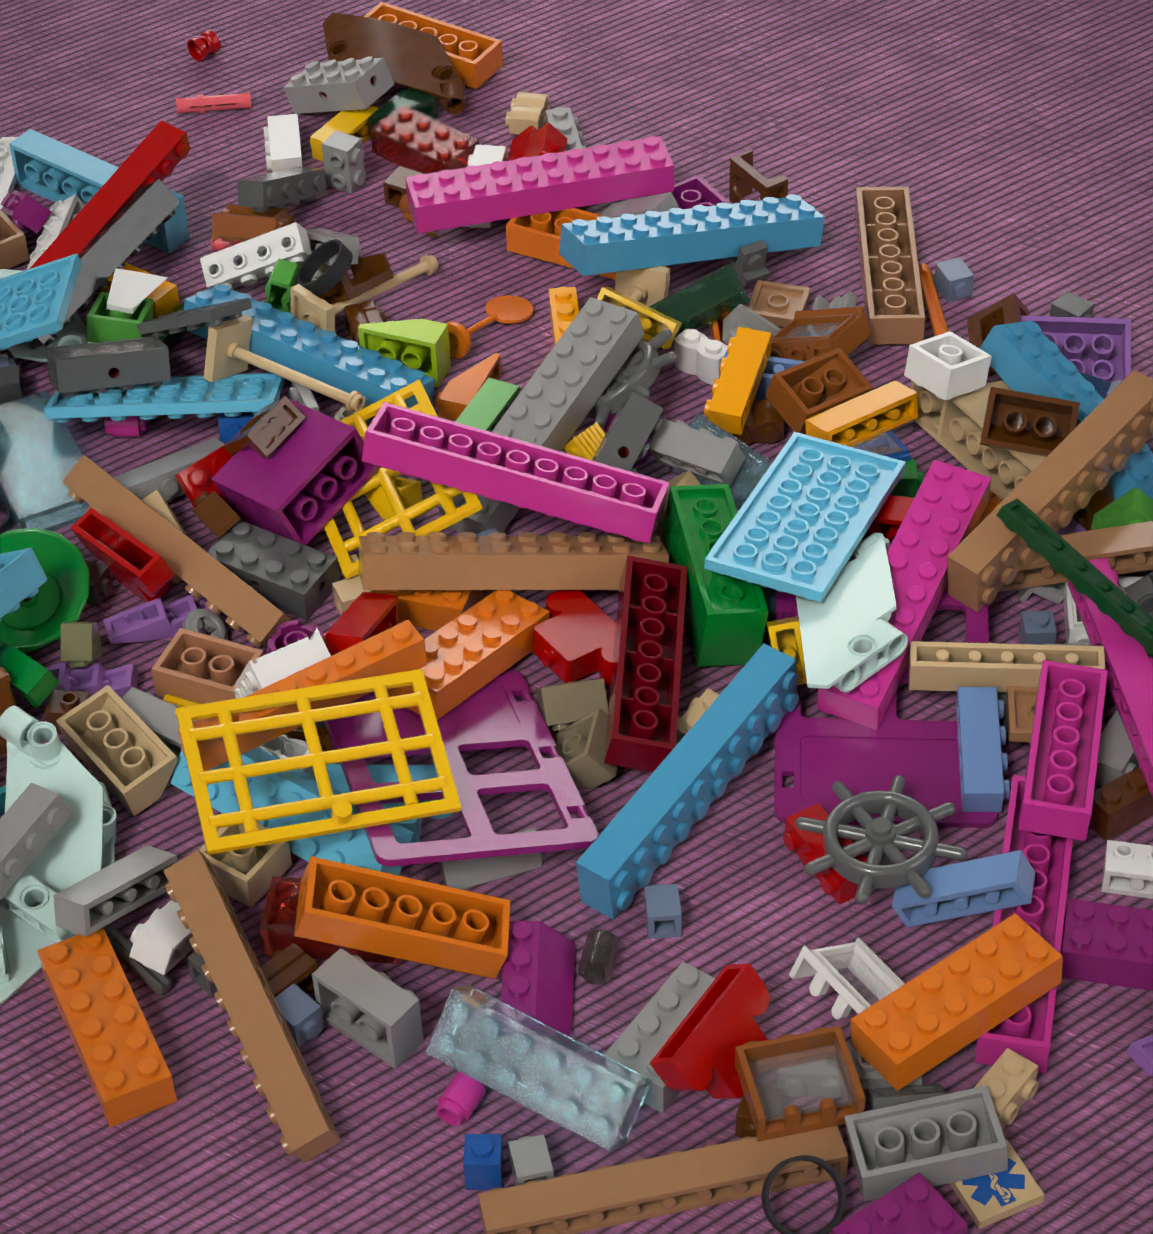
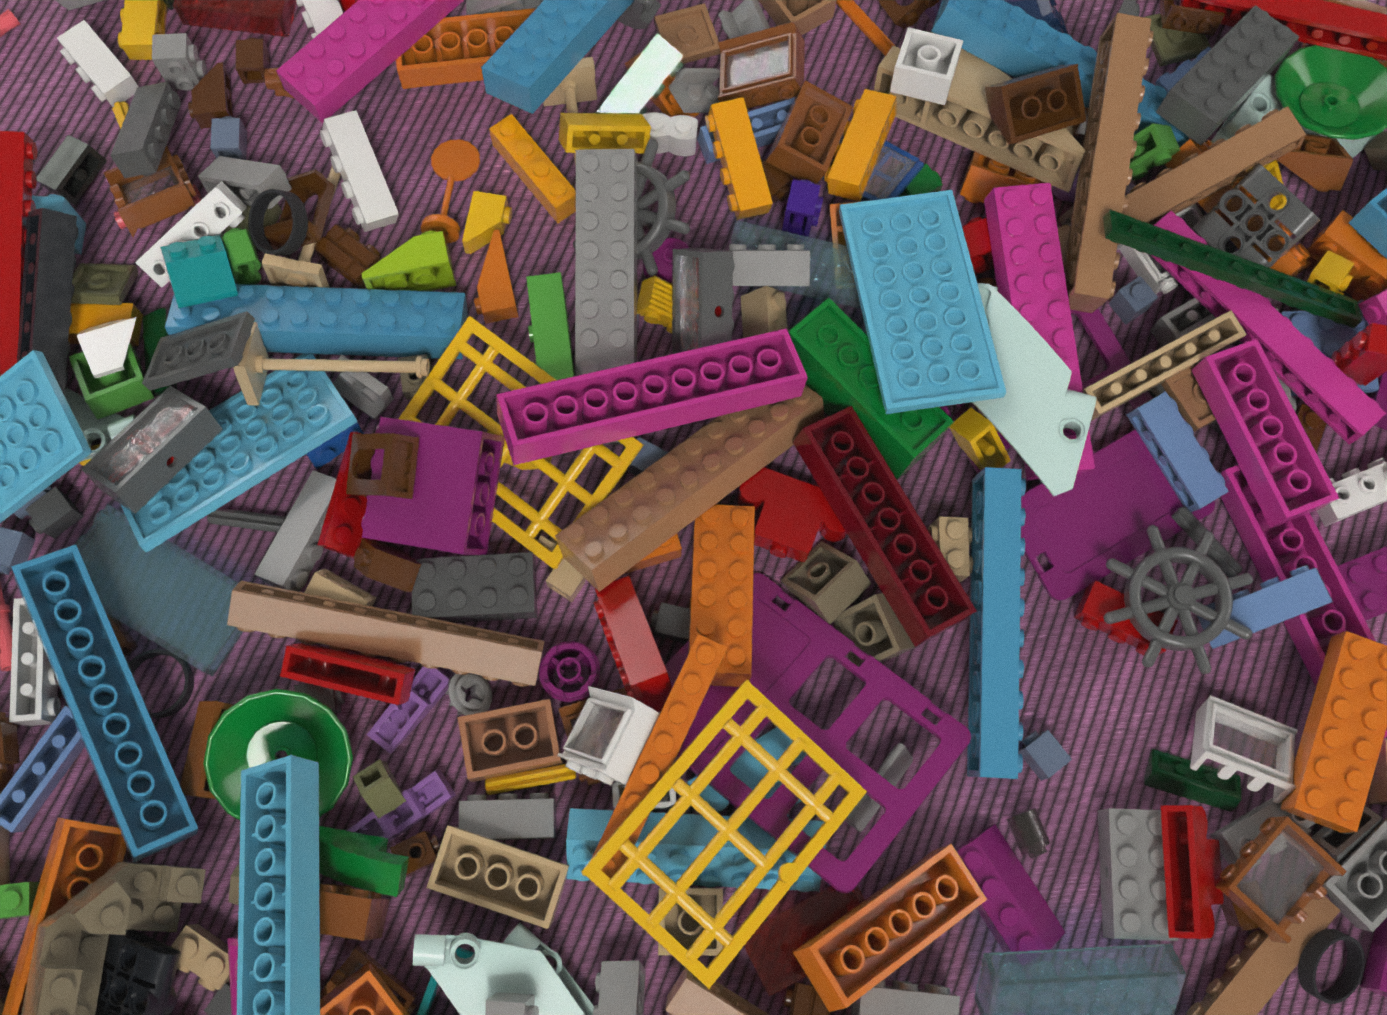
camera: 40 degrees left, 30 degrees up
(132, 450) = (246, 519): none -> dark grey axle
(165, 266) = (102, 283): none -> olive tile
(208, 195) = (71, 169): none -> pearl dark grey brick
(240, 273) = (199, 271): none -> teal slope
(342, 220) = (228, 138): none -> sand blue brick
(352, 198) = (212, 97): none -> reddish brown slope
(421, 273) = (359, 170): none -> white brick
(499, 340) = (485, 215): none -> yellow slope
(769, 433) = (802, 207): none -> dark purple brick
(792, 1005) = (1174, 776): none -> dark green slope
(958, 828) = (1217, 551): none -> dark grey axle

